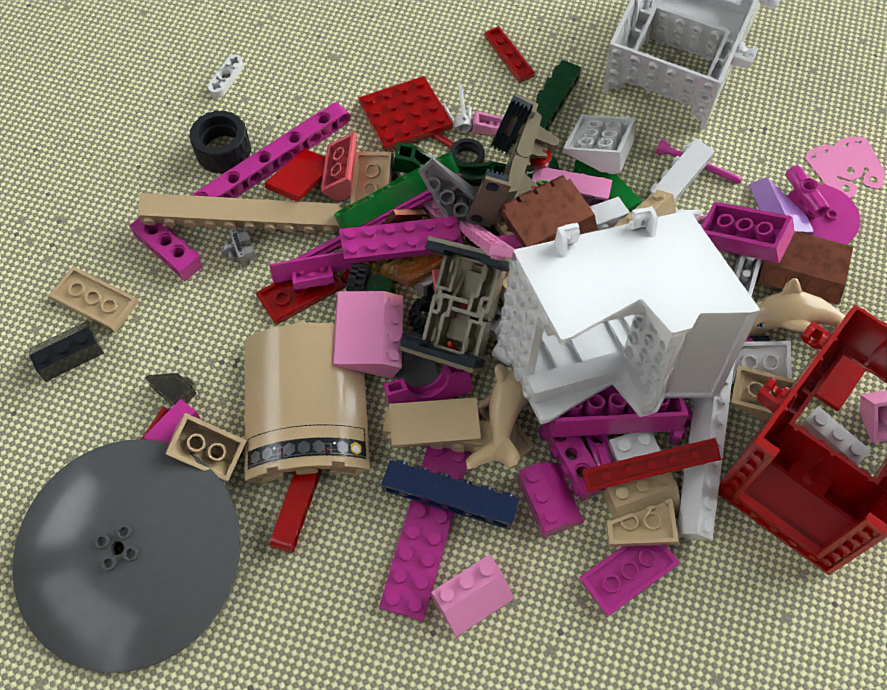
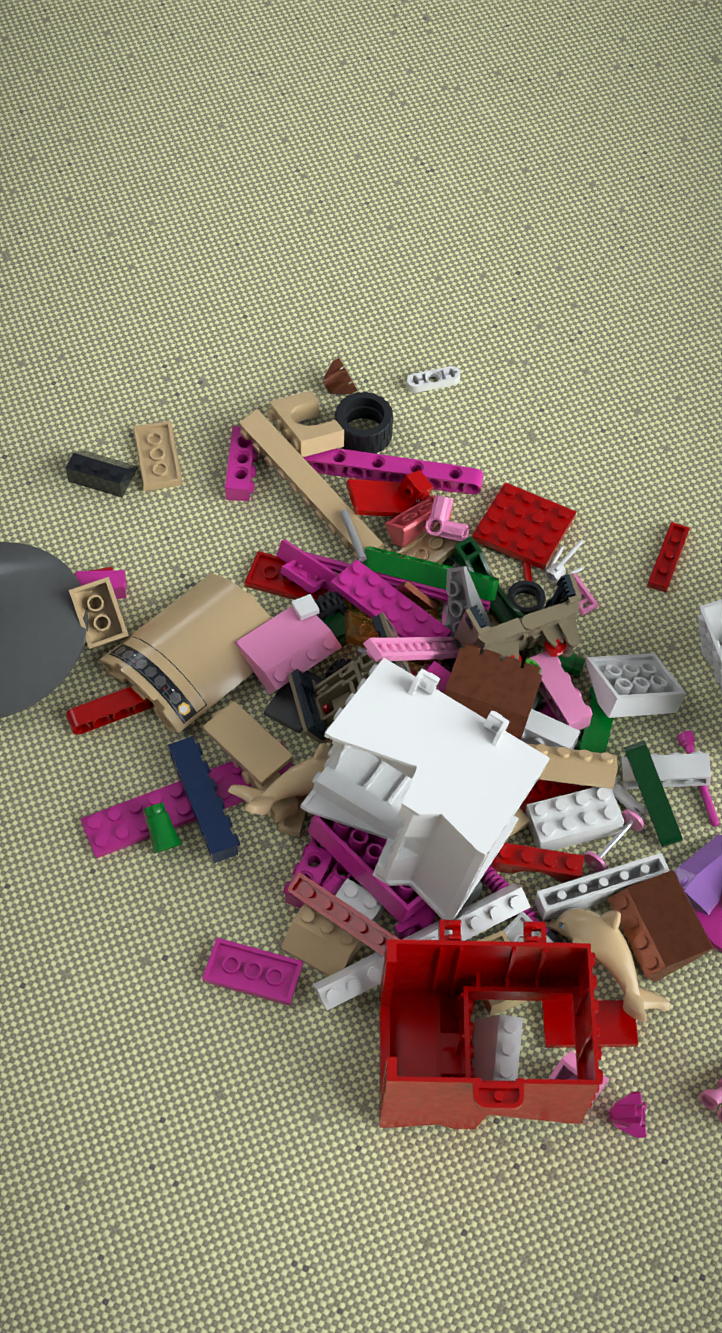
camera: 50 degrees right, 5 degrees down
(162, 129) = (338, 379): none -> copper brick
(172, 387) = (131, 560): clear smoke slope -> none
(200, 182) = (305, 439): none -> tan arch
(244, 254) = (282, 507): light grey hips -> none
(312, 149) = (416, 487): none -> red brick
(316, 216) = (353, 535): none -> light grey bar
(350, 292) = (305, 607): none -> white tile
(360, 145) = (448, 529): none -> bright pink piece
(449, 384) = (261, 709): dark pink arch -> none
(450, 548) = (160, 828): none -> green plant
(472, 595) = (140, 873): bright pink slope -> none
(549, 498) = (264, 873): dark pink slope -> none
(556, 91) = (638, 622): dark green brick -> none
(647, 527) = (296, 956): tan wing -> none
(691, 188) = (653, 793): none -> dark green beam
(749, 231) = (637, 849): dark pink brick -> none

